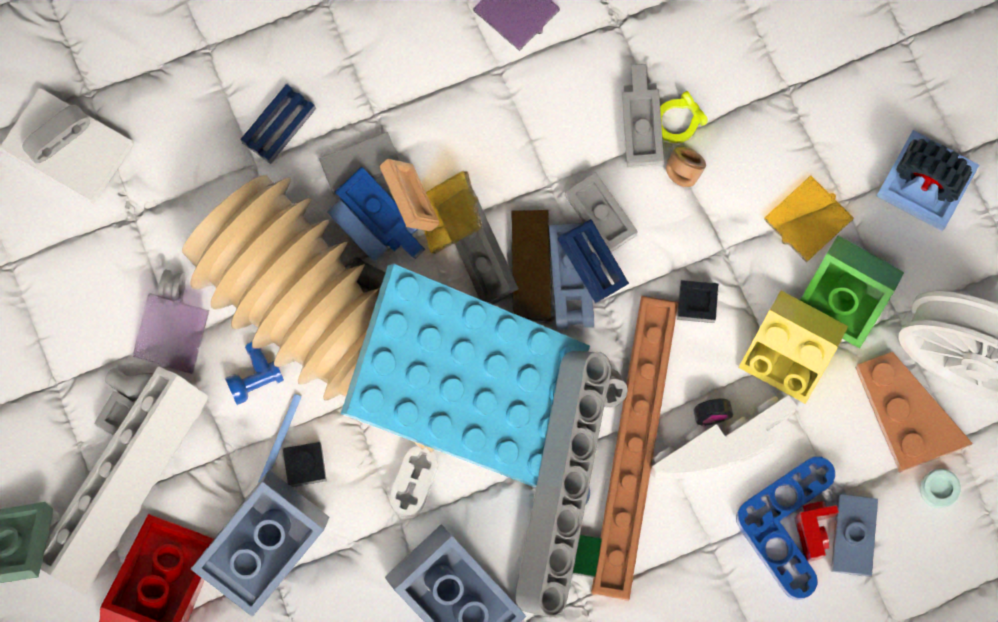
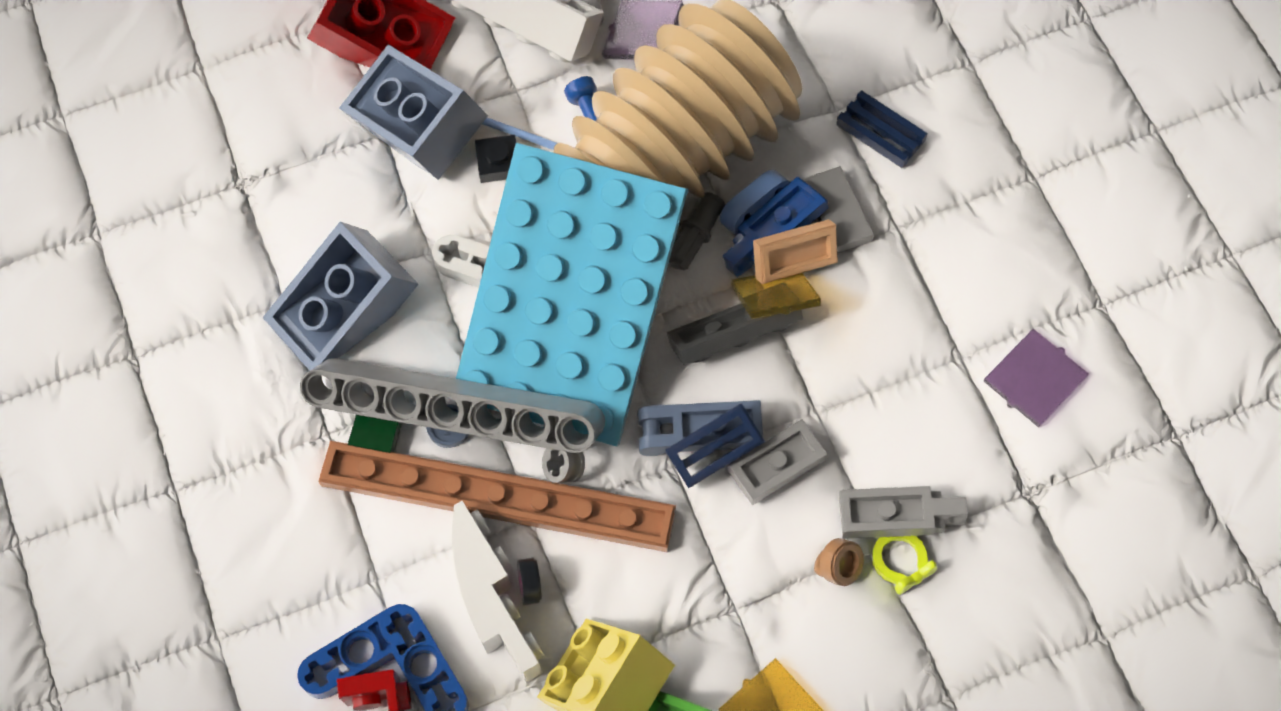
camera: 90 degrees right, 10 degrees down
(531, 264) = (716, 383): dark brown tile -> none
(697, 301) = (666, 569): black plate -> none

